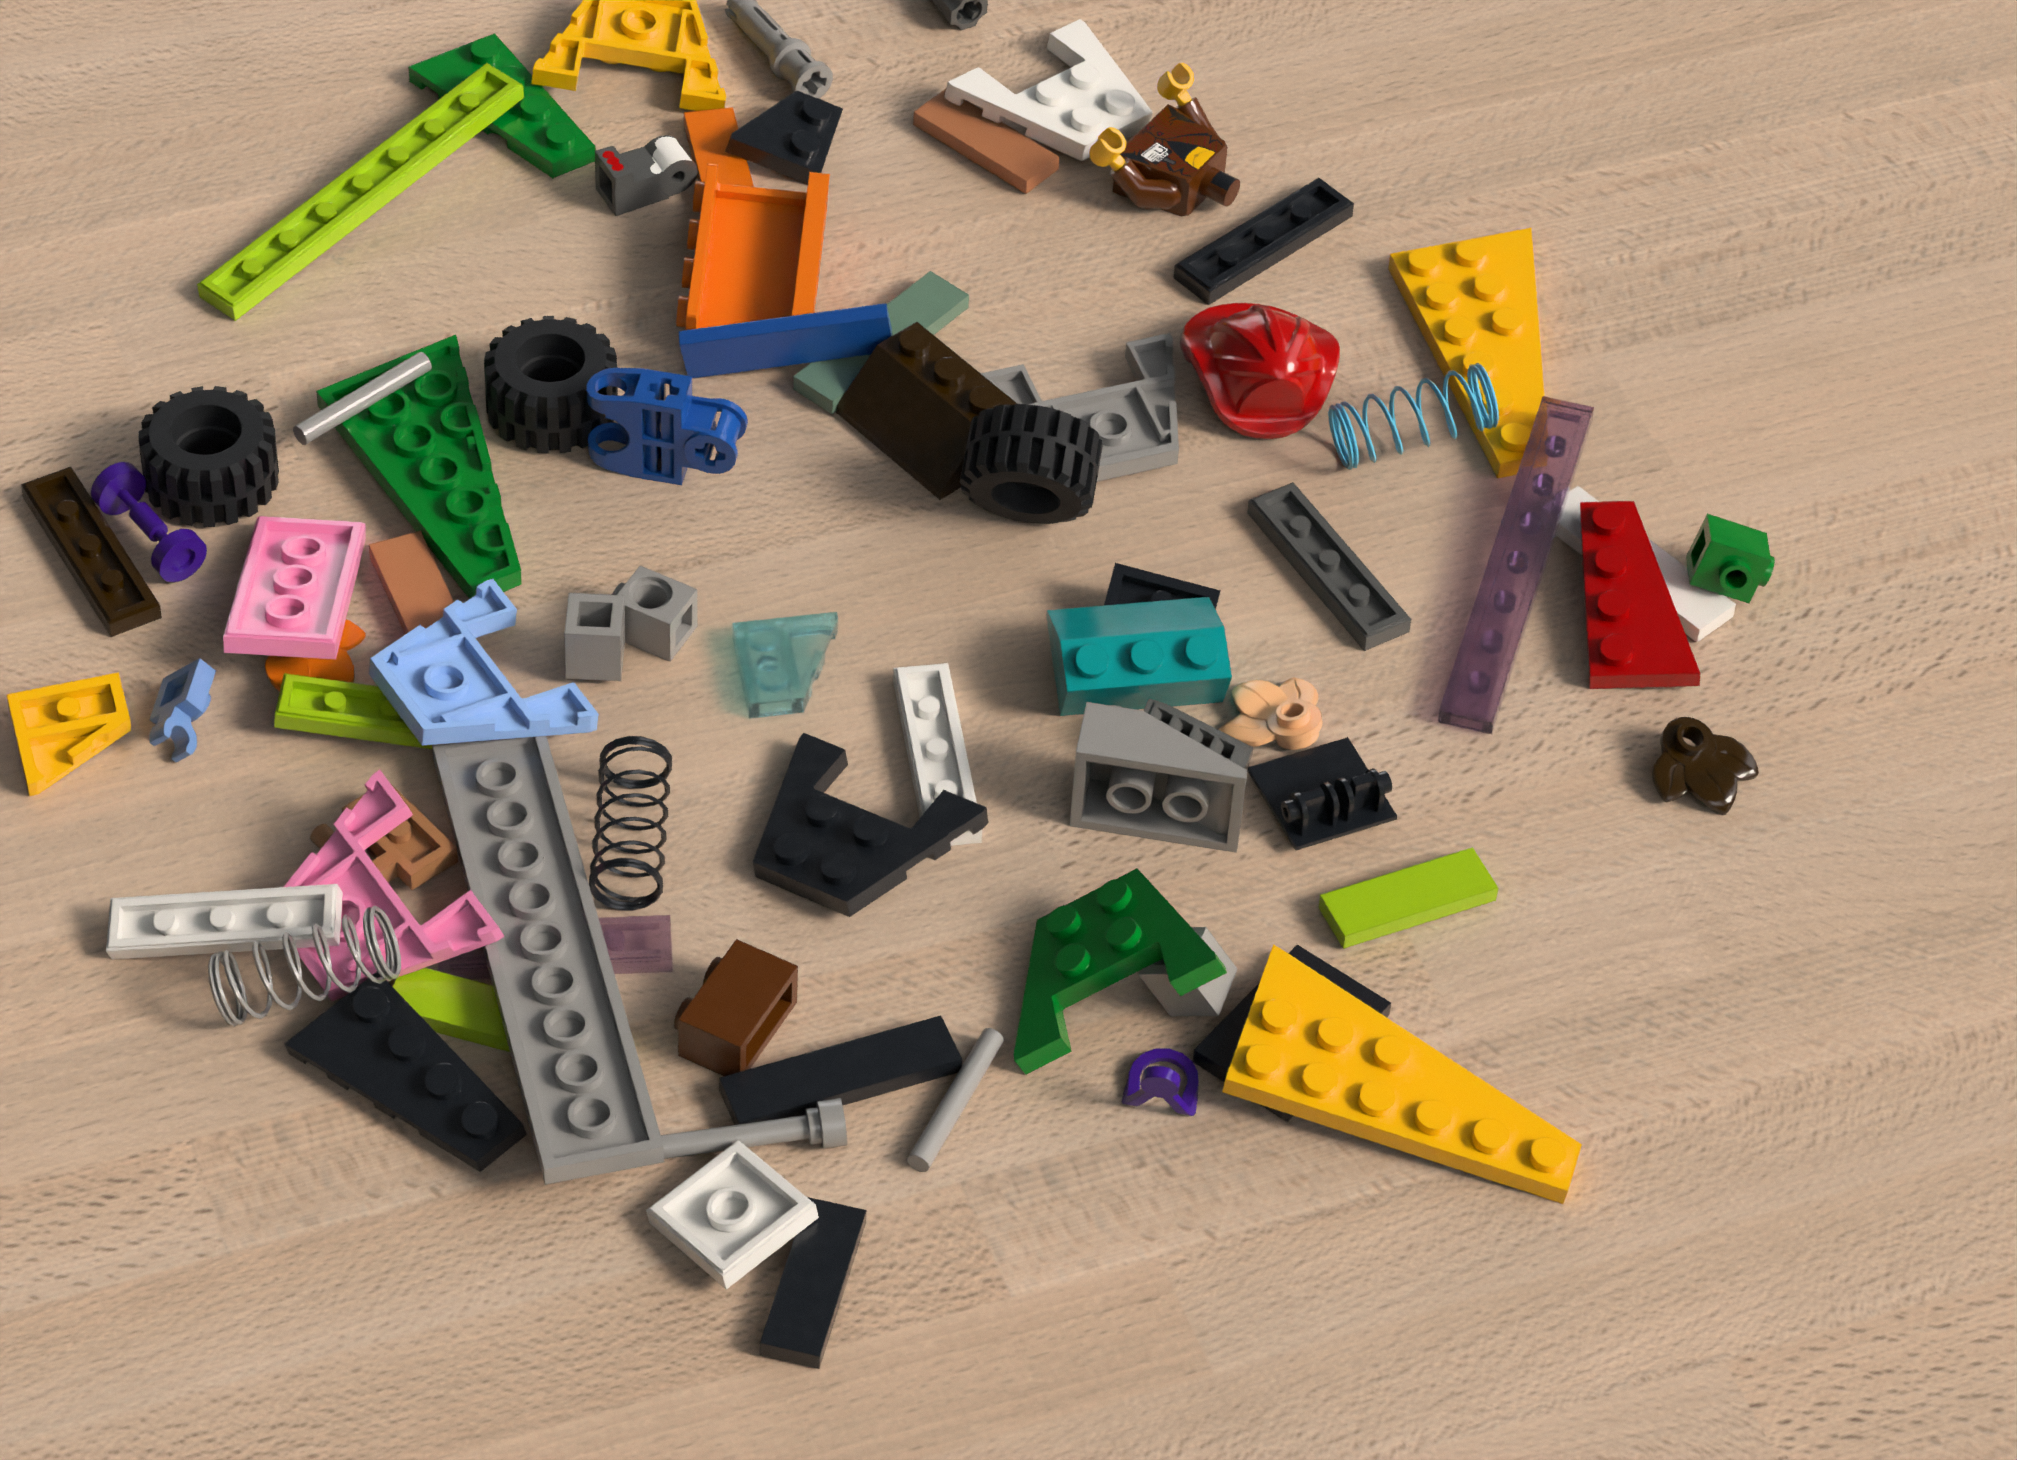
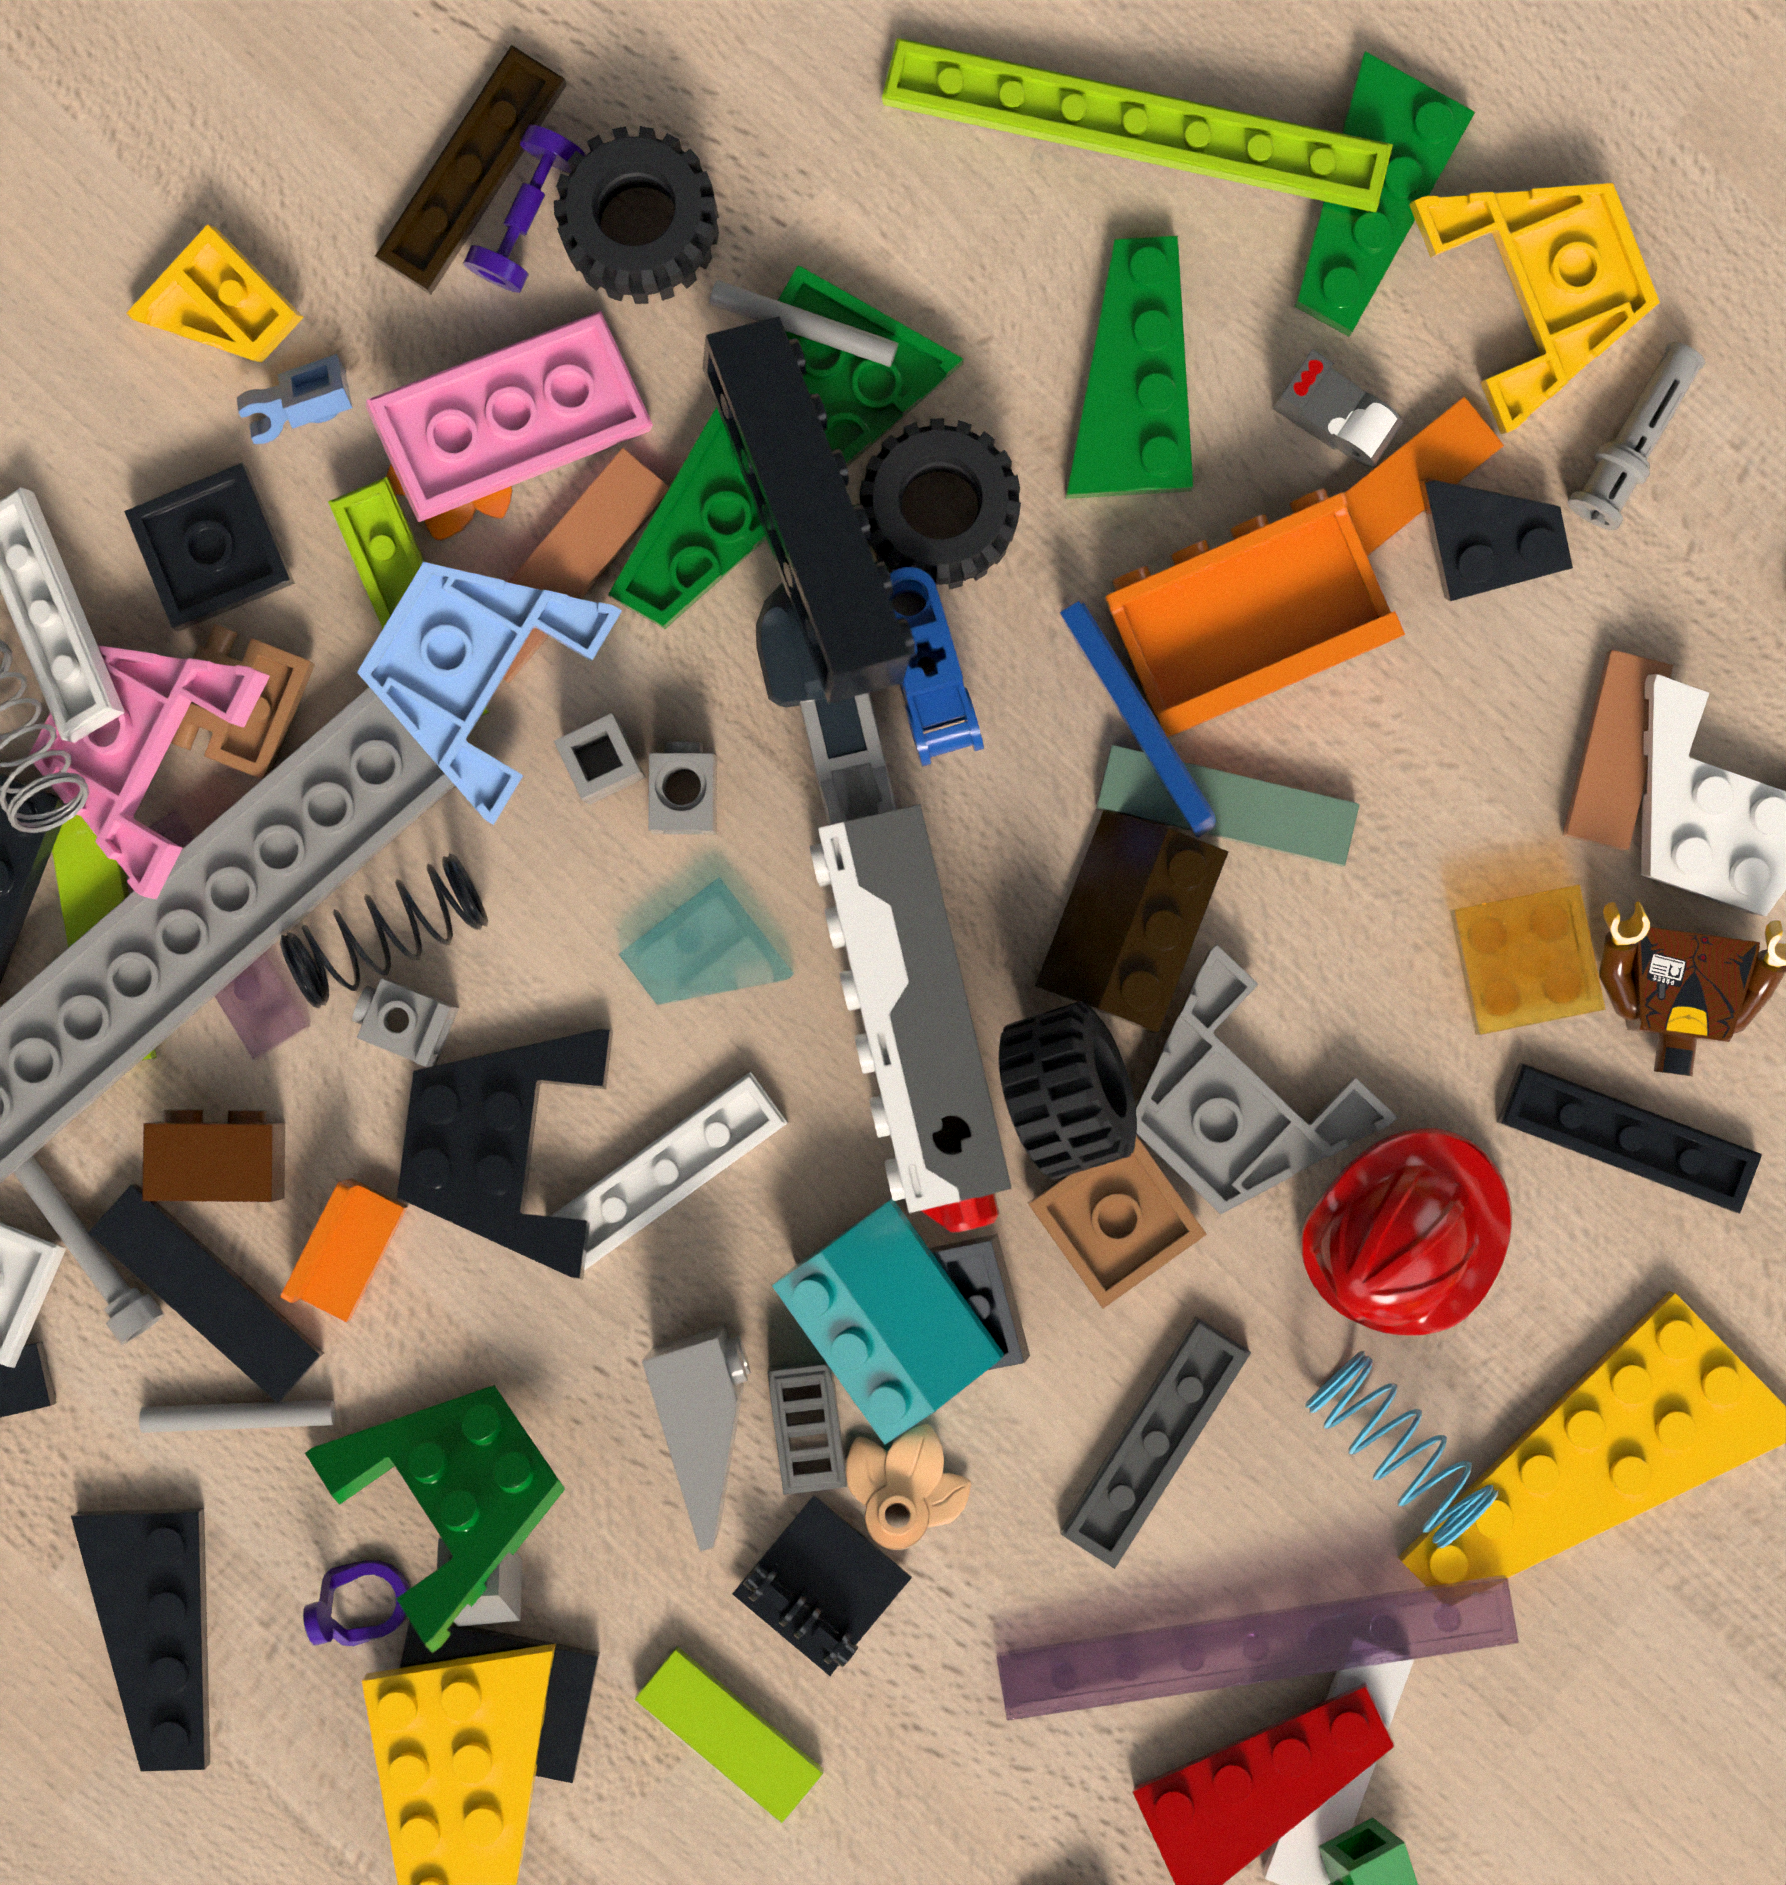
camera: 70 degrees right, 40 degrees up
(249, 811) = (209, 547): none -> black plate
(505, 408) = (806, 509): none -> black brick
(552, 270) = (1136, 393): none -> green wing
(712, 846) = (427, 1027): none -> light grey brick
(844, 521) = (896, 945): none -> piece
(864, 967) = (344, 1249): none -> orange panel
(1081, 1221) = (153, 1617): none -> black wing
(1101, 233) = (1527, 960): none -> clear yellow plate
(1147, 512) = (1117, 1223): none -> medium nougat plate

